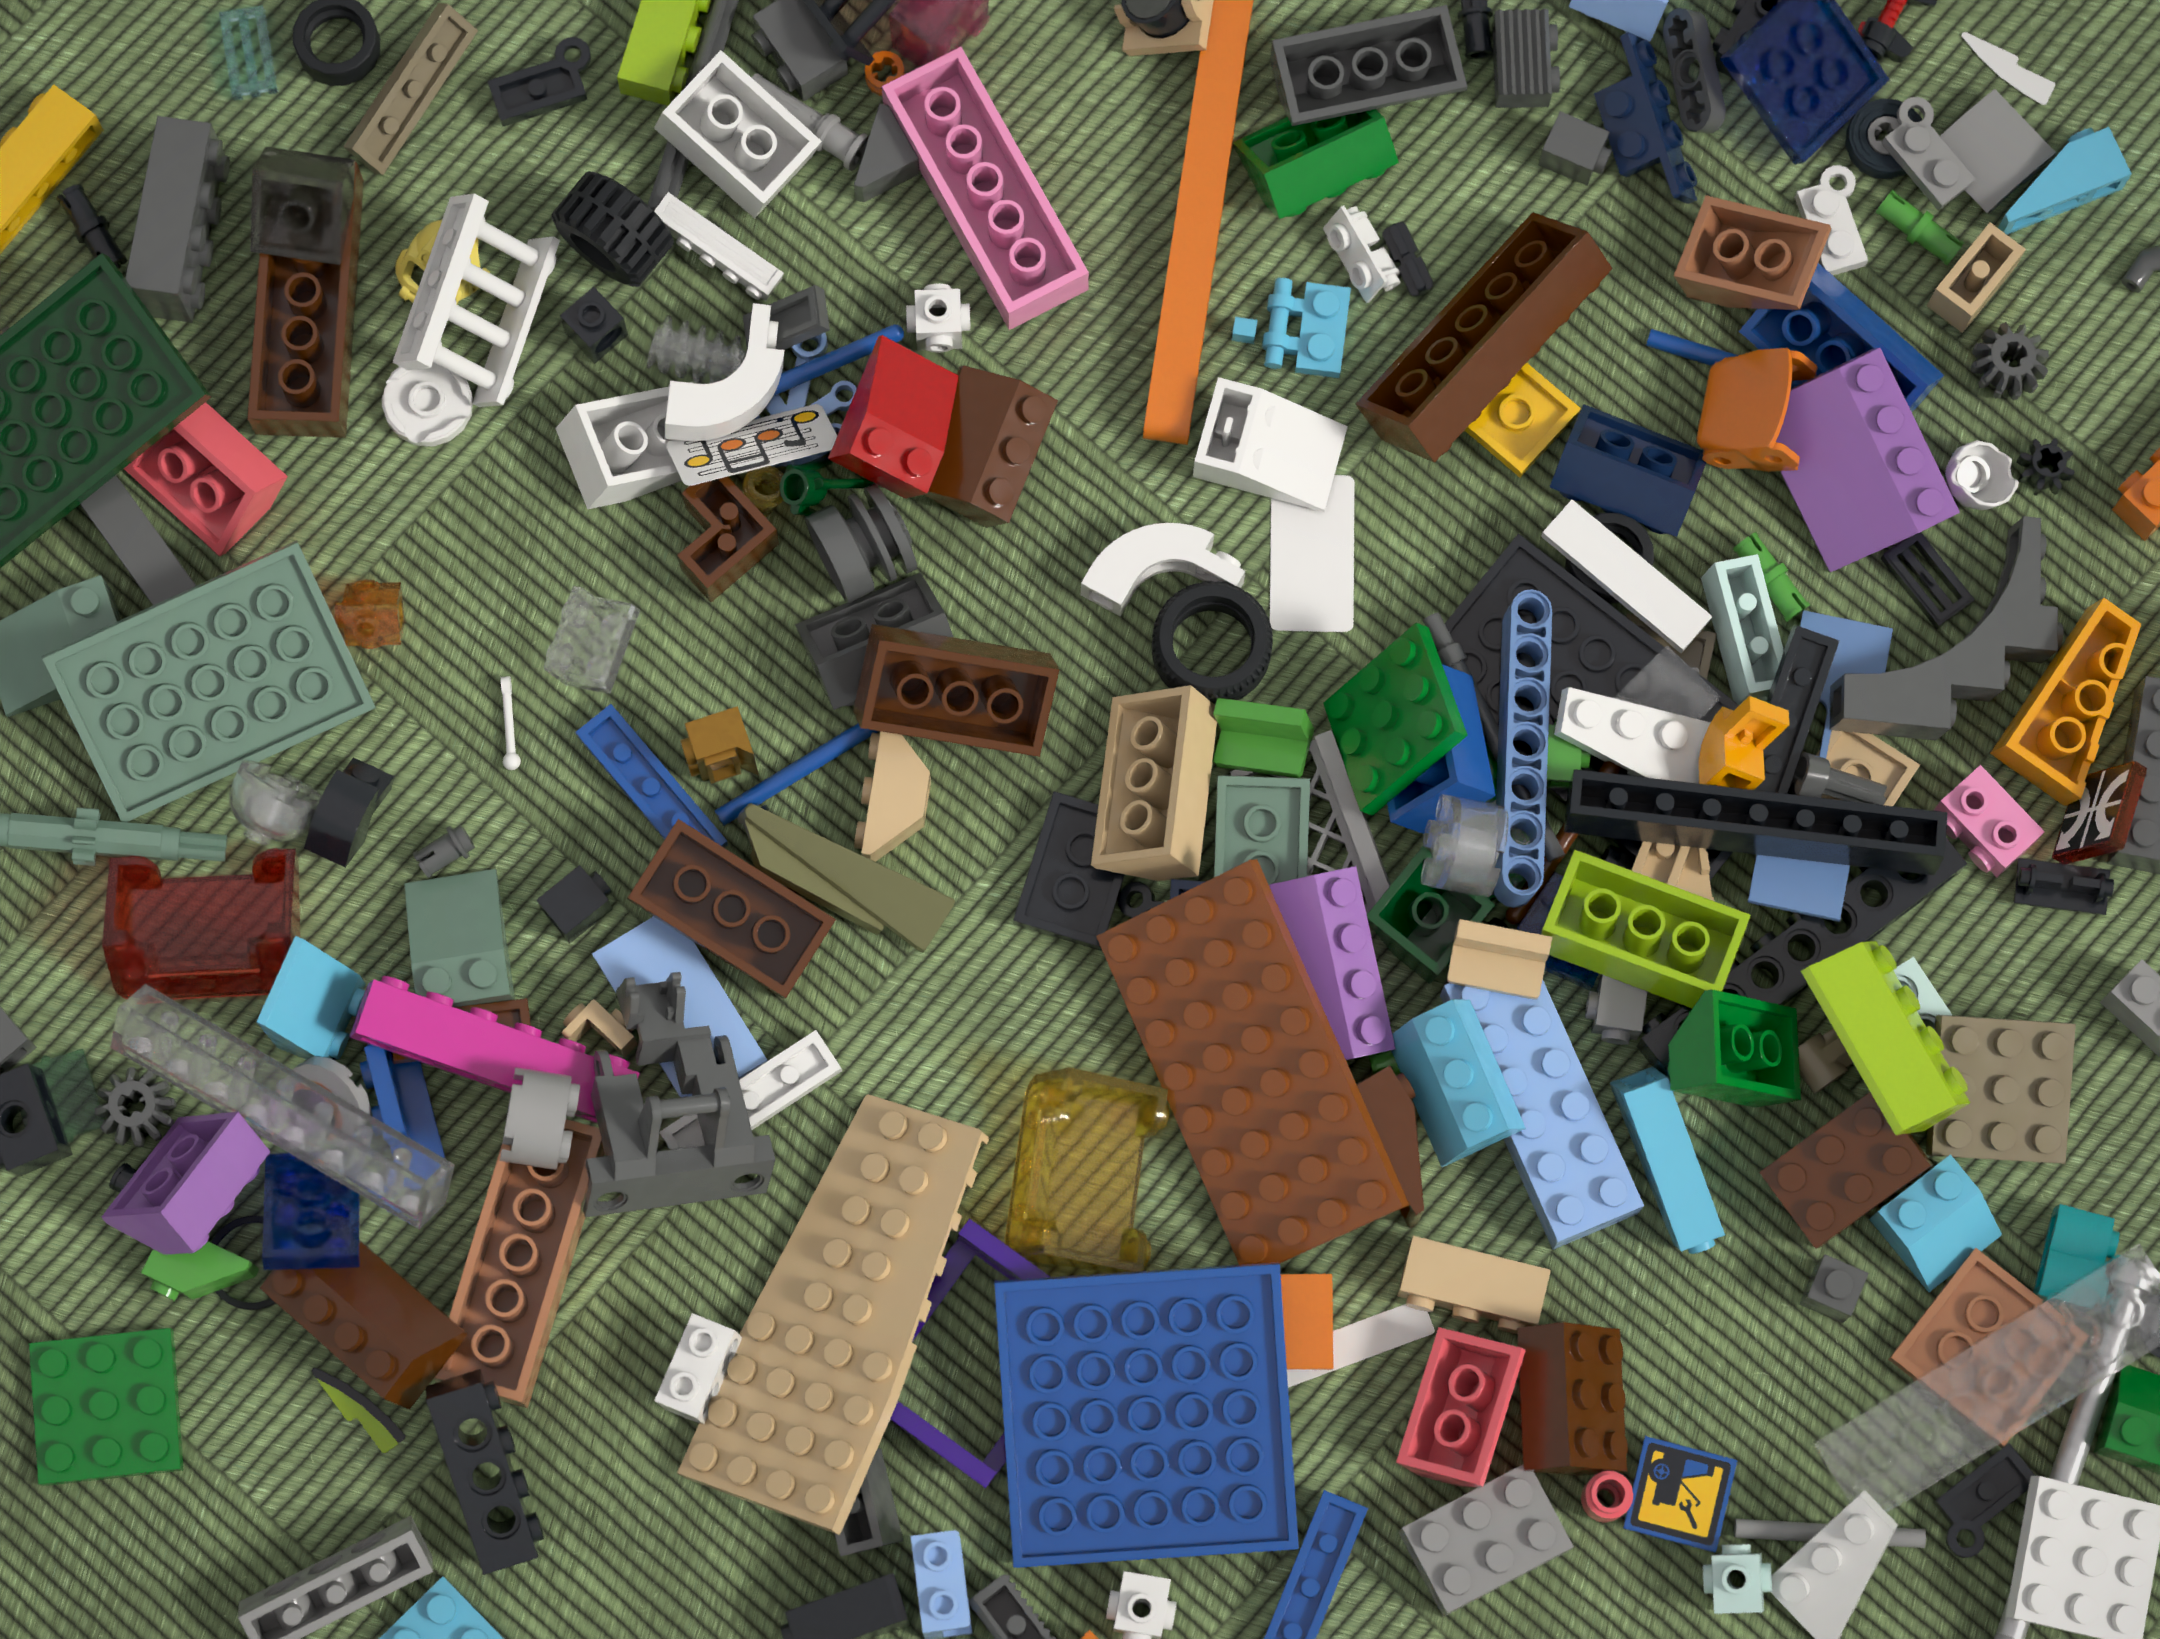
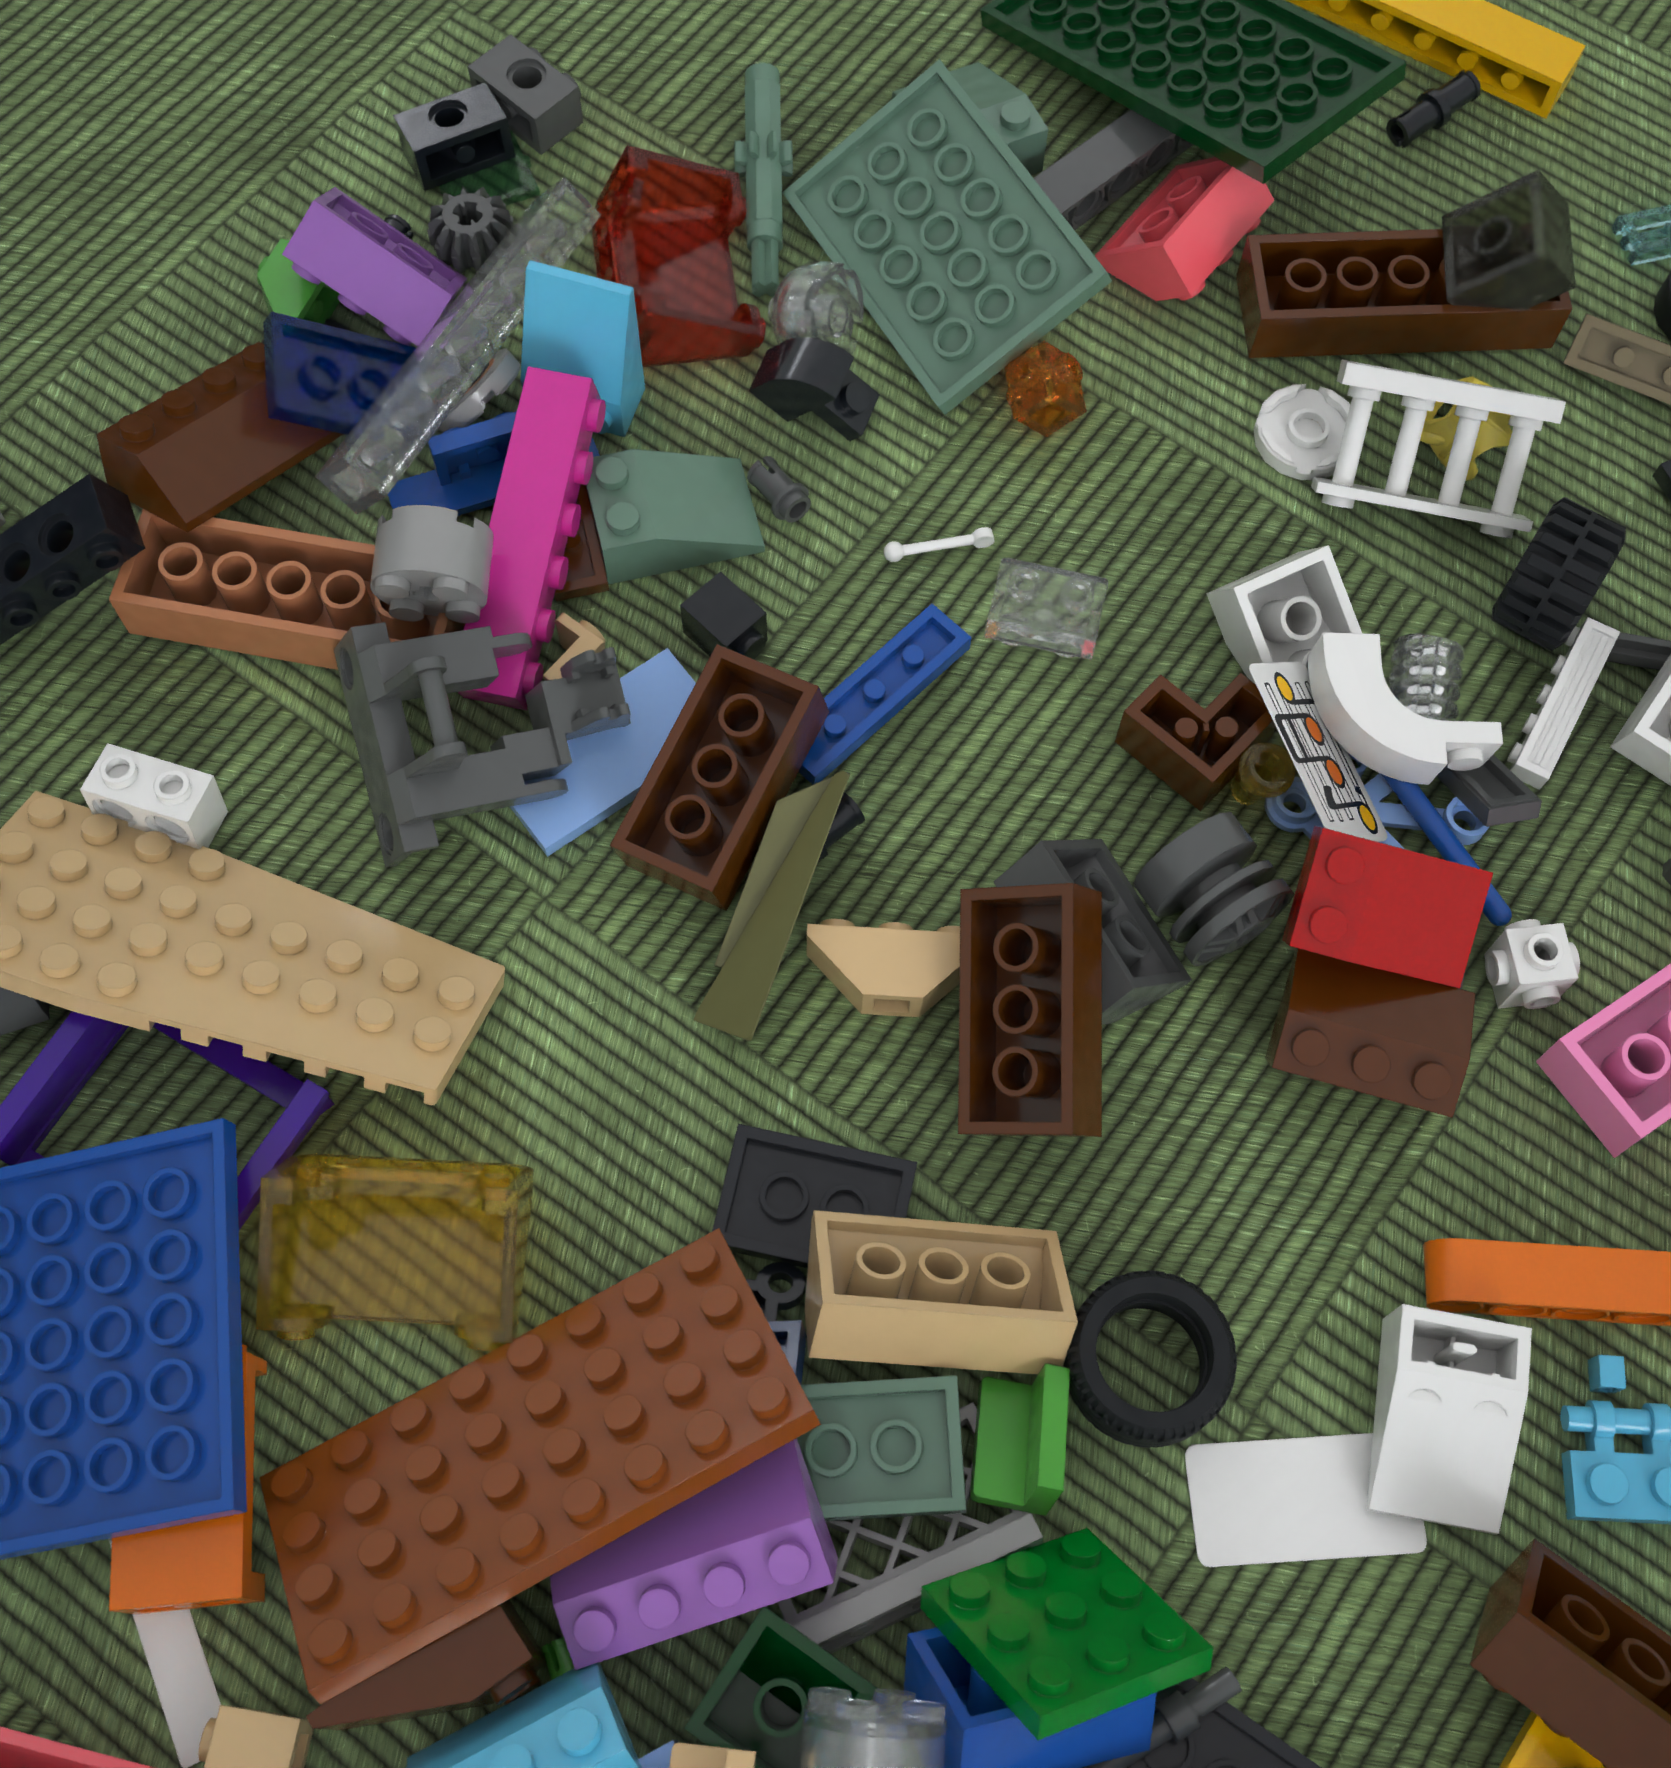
camera: 85 degrees right, 10 degrees down
(106, 1407) = (151, 243): green plate -> none
(177, 218) = (1444, 153): dark grey brick -> none
(594, 325) = (1434, 579): black brick -> none
(718, 746) = (925, 747): pearl gold window -> none
(768, 1088) = (517, 866): white plate -> none
(793, 772) = (904, 842): blue piece -> none
(805, 487) = (1273, 810): dark green plant -> none
(1153, 551) = (1268, 1265): white arch -> none

